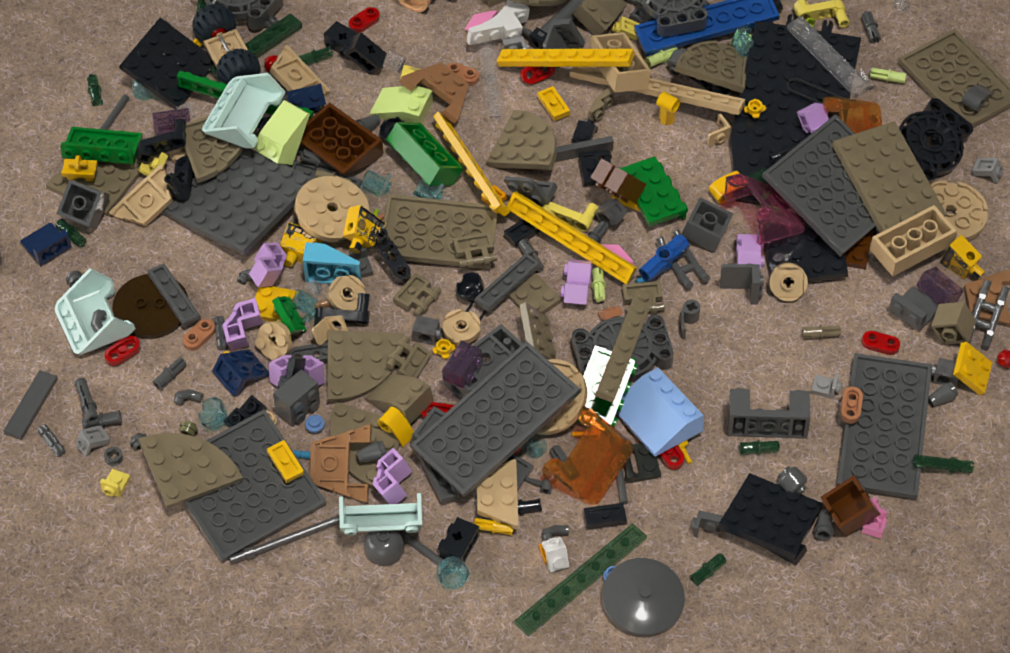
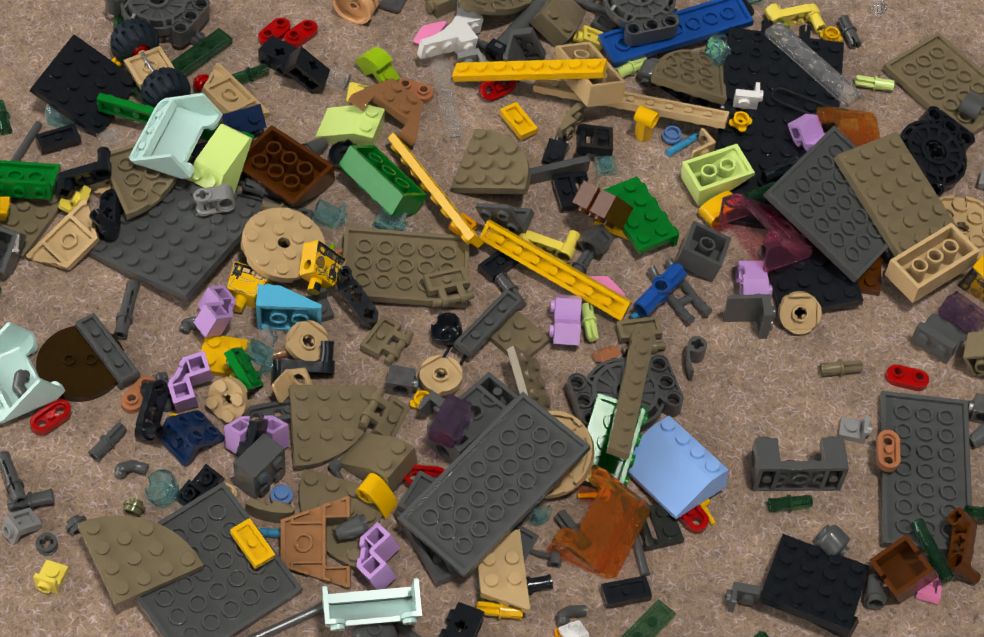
camera: 10 degrees left, 0 degrees up
(141, 110) = (58, 138): none -> black plate
(165, 120) = (86, 149): brick -> none
(188, 274) = (125, 317): none -> dark grey pin
(210, 335) = (154, 396): none -> black beam
(275, 167) = (216, 199): none -> light grey piece
(304, 438) = (274, 513): none -> dark tan slope
(341, 15) = (276, 28): none -> red plate
(363, 401) = (335, 465): none -> dark grey hand
(430, 48) = (377, 62): none -> lime brick
(447, 350) = (430, 402): none -> dark grey bracket
(626, 125) = (601, 140): none -> black plate
(629, 146) = (605, 166): none -> clear light blue plate
(693, 119) = (672, 135): none -> medium blue plate
(701, 128) = (682, 144): none -> dark azure wheel
(727, 154) = (715, 173): none -> yellowish green slope
(763, 88) = (748, 99): none -> white bracket
(853, 29) = (831, 34): none -> yellow plate
(882, 499) = (936, 558): none -> clear green pin
(906, 487) = (962, 545): none -> reddish brown beam

